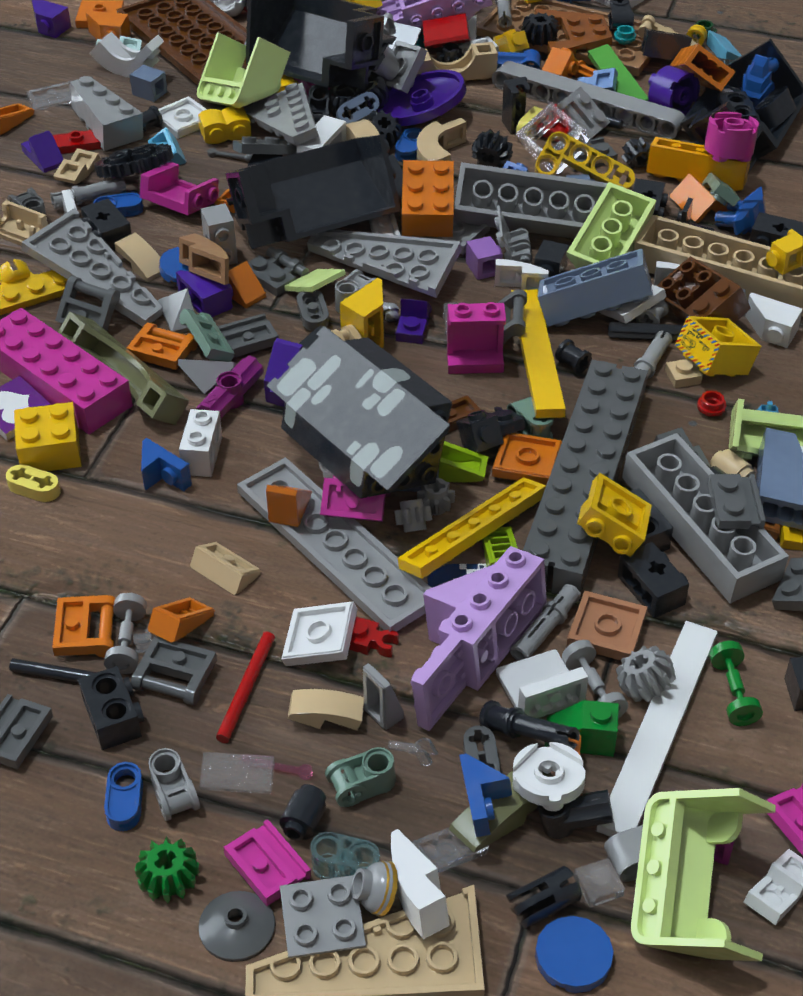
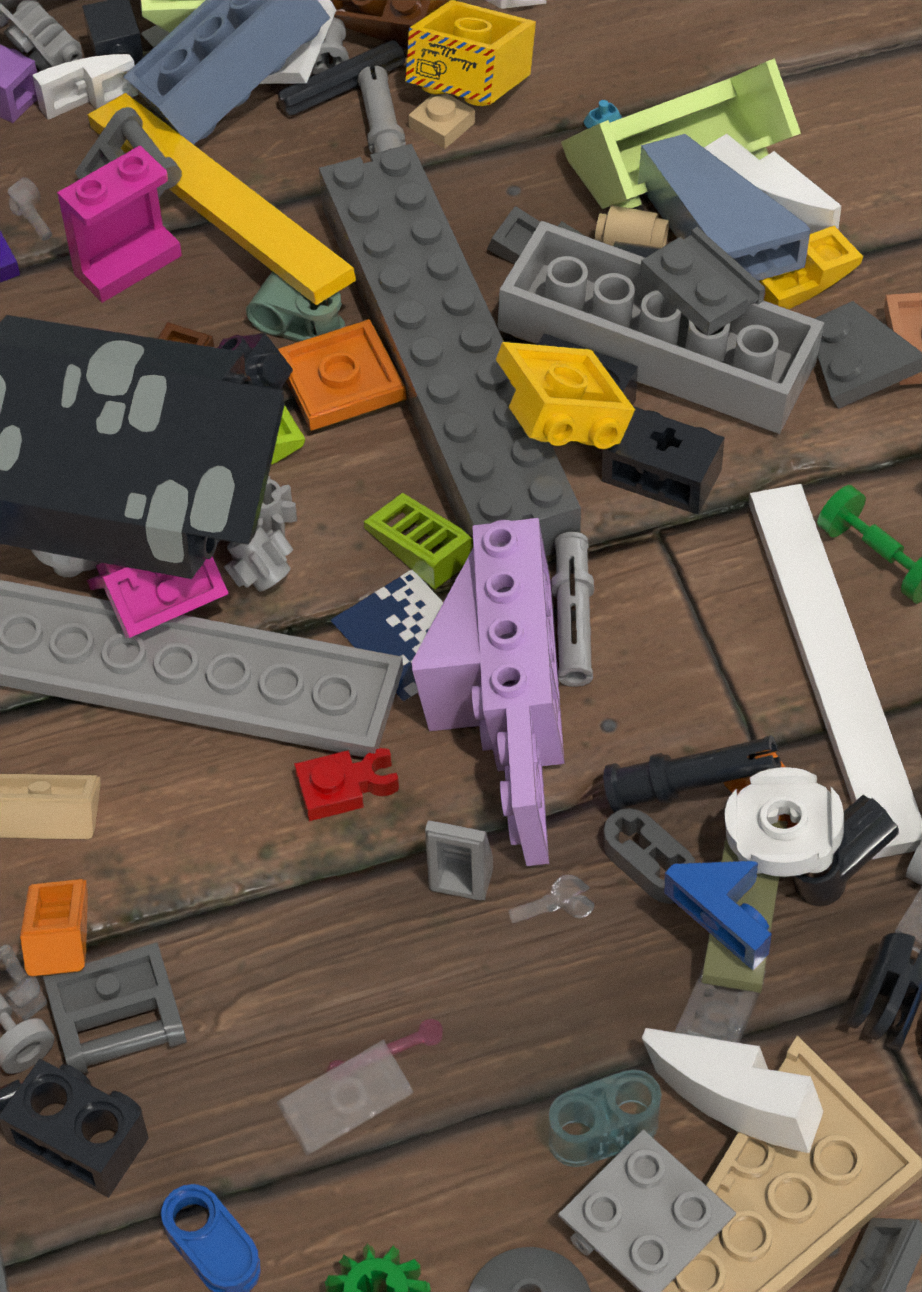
camera: 35 degrees left, 10 degrees up
(174, 788) = (281, 1186): light grey piece -> none
(245, 687) = (238, 966): red bar -> none
(266, 861) = (500, 1193): dark pink plate -> none
(286, 504) = (68, 650): orange slope -> none
(303, 812) = (490, 1091): black brick -> none
(317, 705) = (378, 924): tan slope -> none
(319, 634) = (281, 819): white tile -> none
(361, 776) = (519, 996): sand green piece -> none
(376, 887) = (692, 1124): light grey piece -> none
(471, 528) = (362, 528): yellow plate -> none
(508, 421) = (280, 328): black plate -> none
(543, 684) = (643, 700): white bracket -> none
(573, 356) = (272, 174): black bush -> none
(581, 655) = (659, 628): light grey wheel -> none
(596, 725) = (756, 710): green slope -> none
(608, 624) = (657, 563): nougat plate -> none
(646, 673) = (769, 601): light grey gear -> none
(711, 403) = (521, 146): red plate -> none

